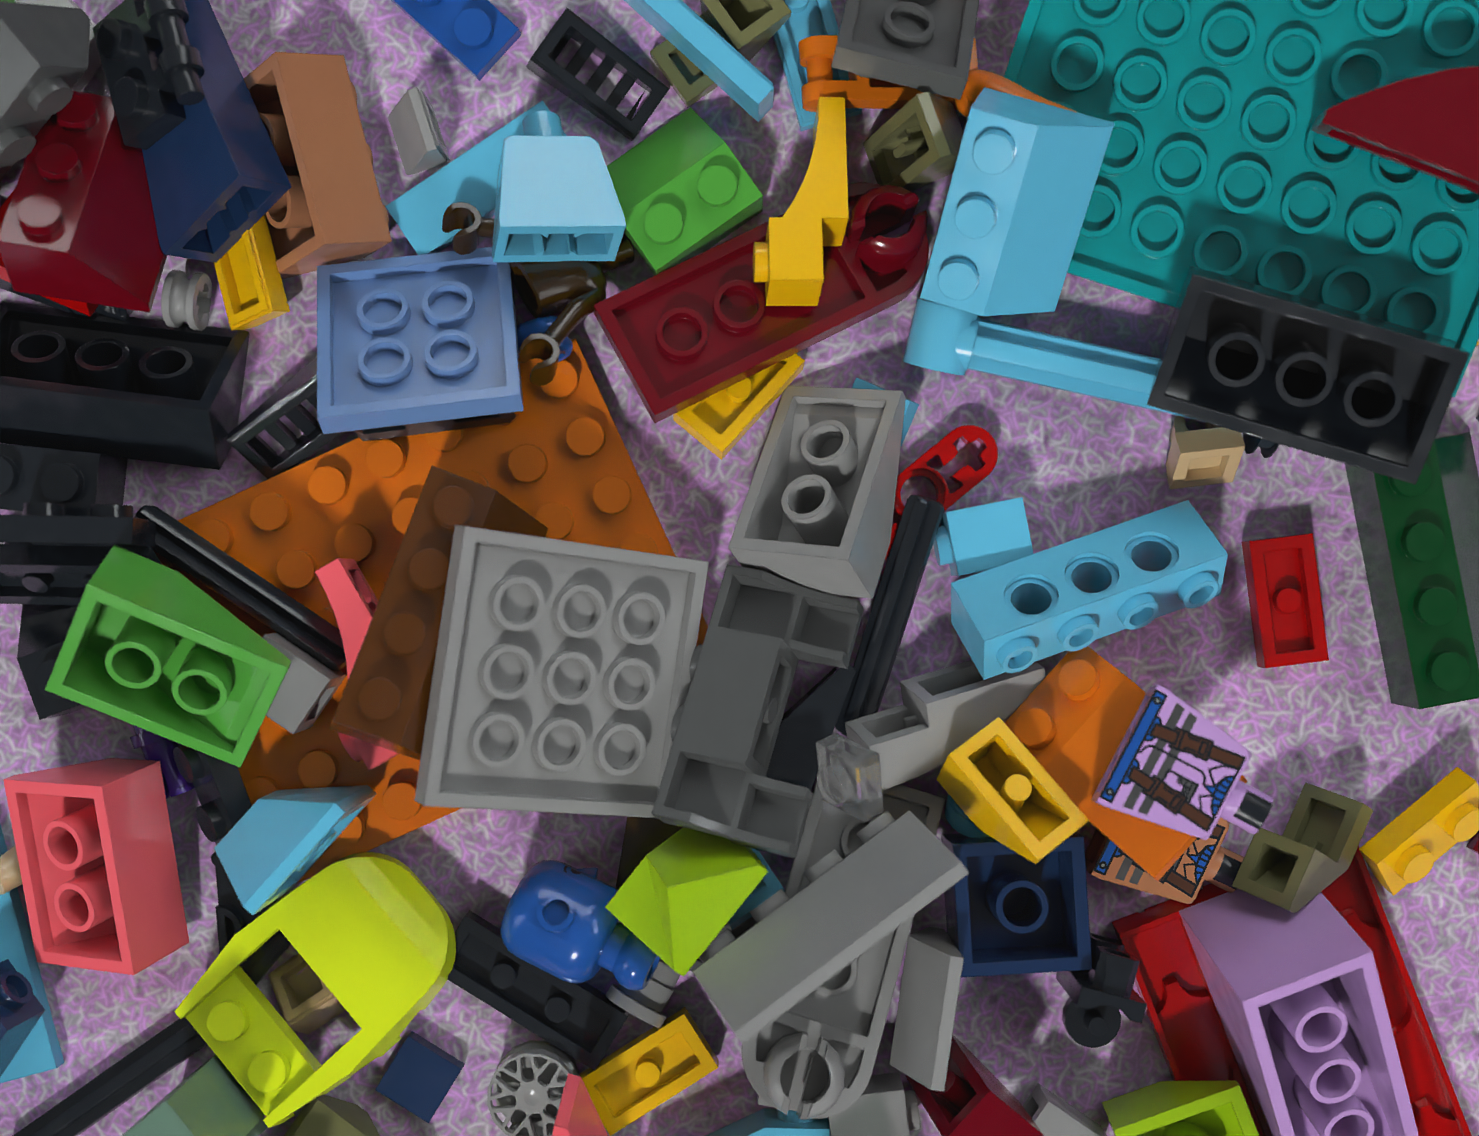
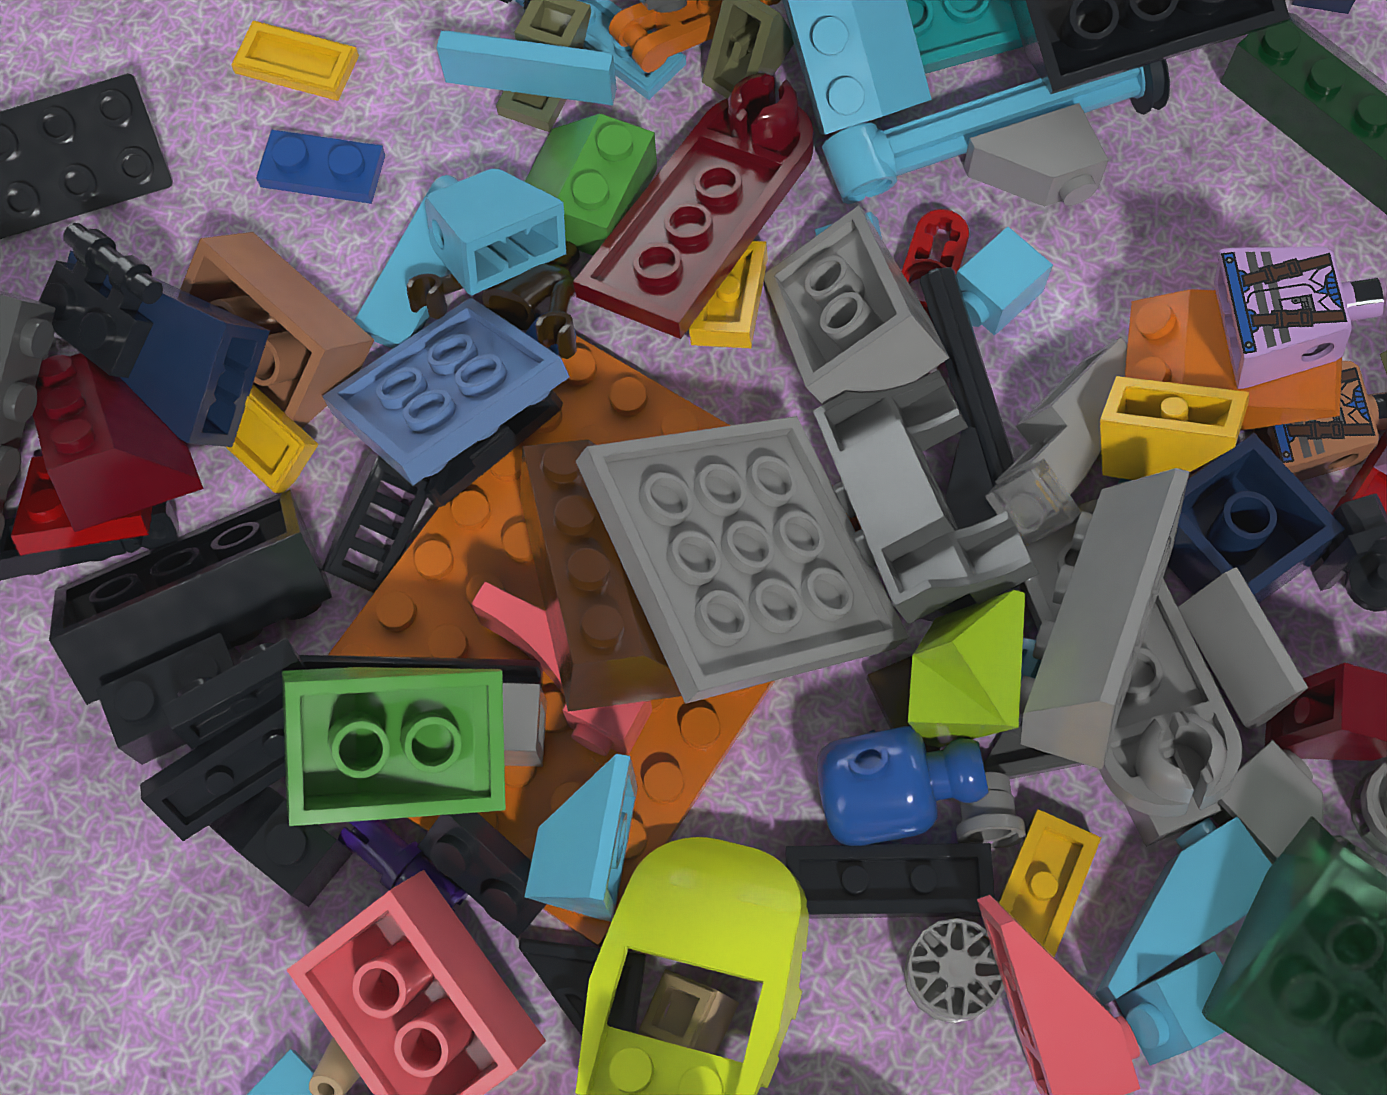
camera: 25 degrees left, 20 degrees down
(186, 300) = (223, 487): light grey bush -> none
(417, 133) = (345, 258): light grey slope -> none
(420, 1076) = (841, 1034): dark blue tile -> none
(564, 80) = (441, 160): black slope -> none
(817, 217) = (706, 145): yellow slope -> none
(1087, 589) = (1107, 262): medium azure brick -> none
(1113, 439) = (1041, 158): none -> light grey slope
(1202, 455) = (1123, 129): tan tile -> none
(1285, 600) = (1261, 194): red plate -> none

